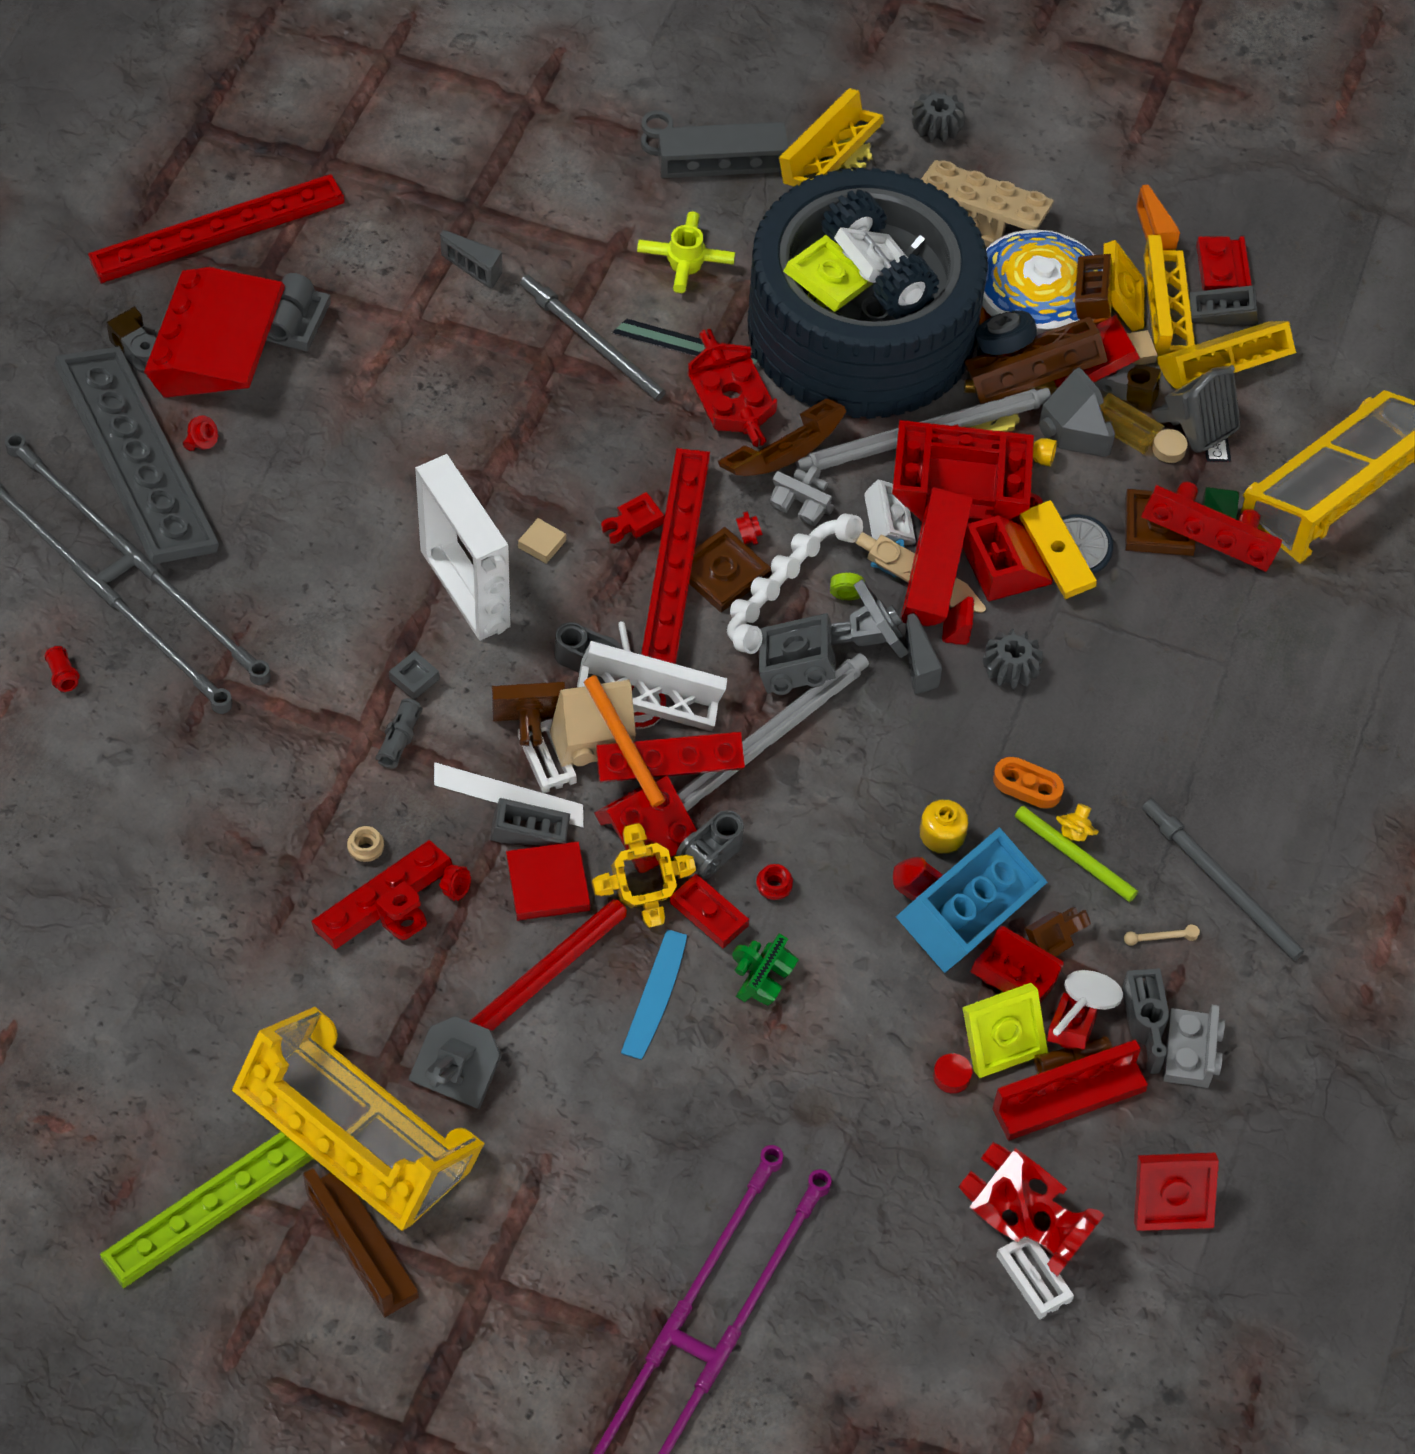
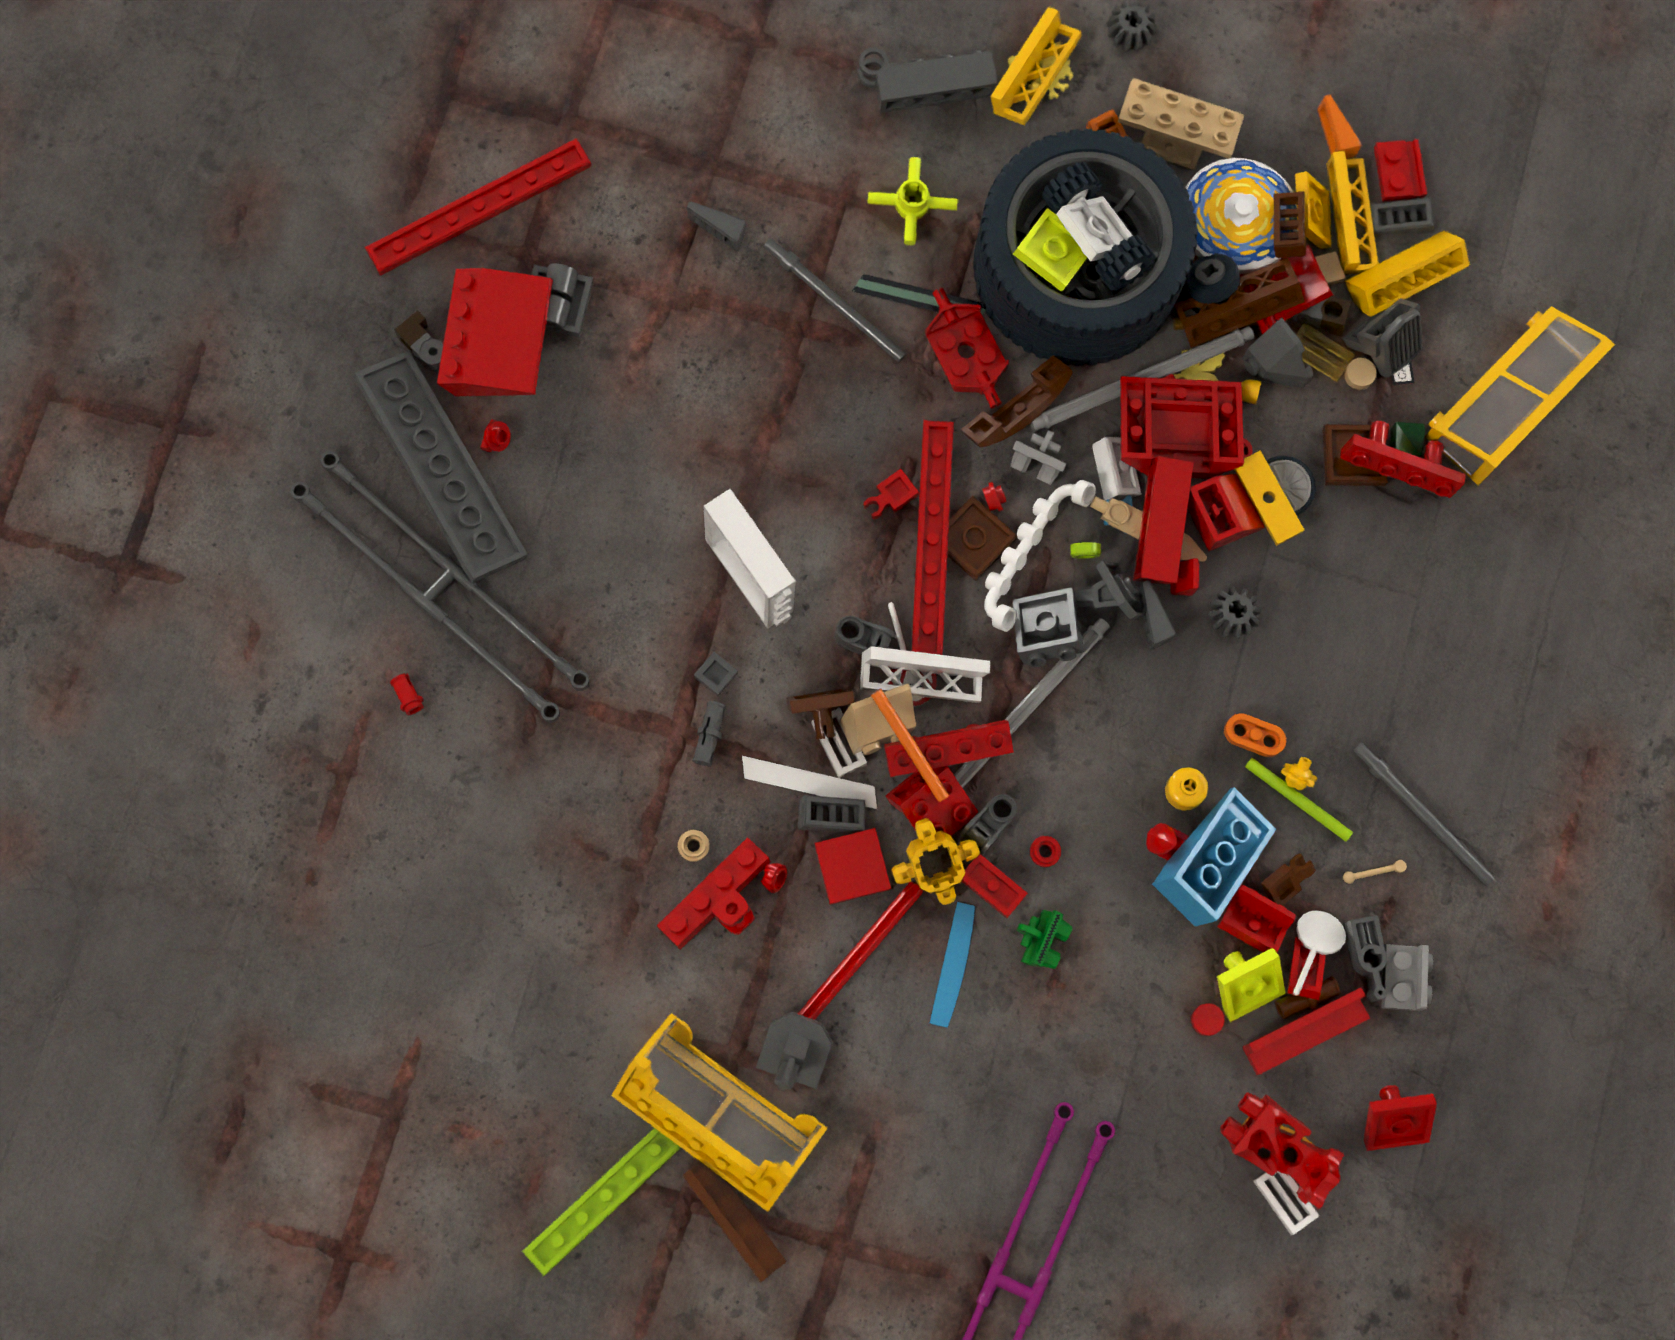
camera: 10 degrees left, 20 degrees up
(542, 540) = (812, 522): tan tile -> none

